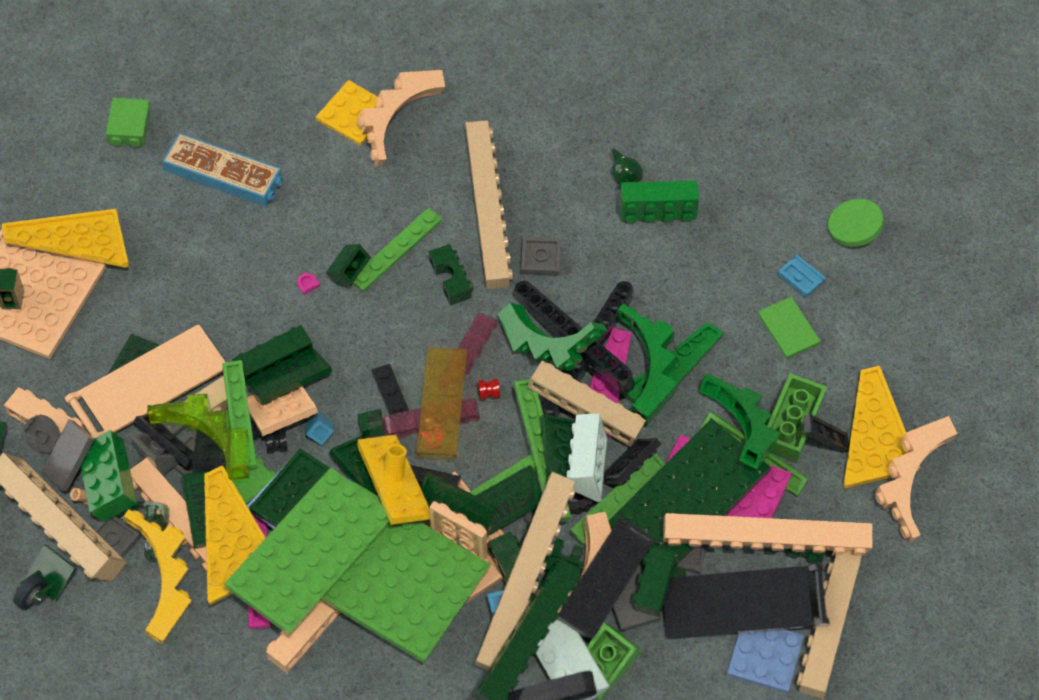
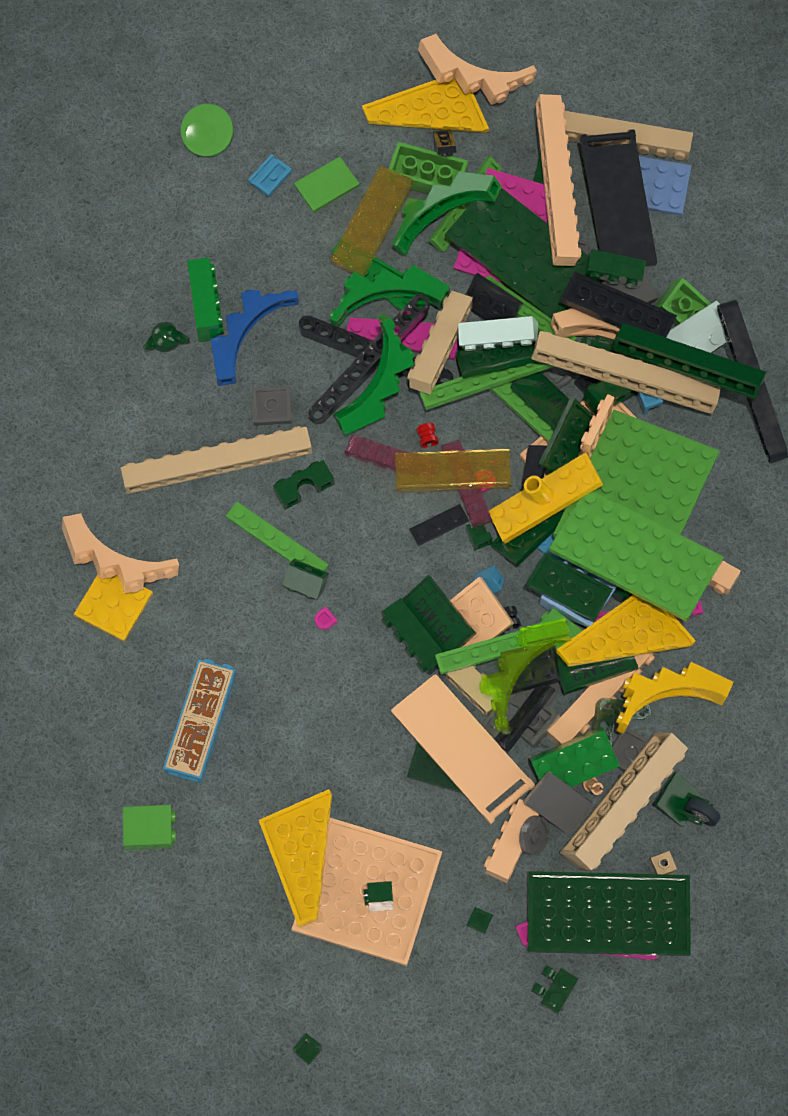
camera: 95 degrees left, 10 degrees up
(608, 221) = (239, 324): none -> blue arch
(735, 355) = (371, 220): none -> clear yellow plate

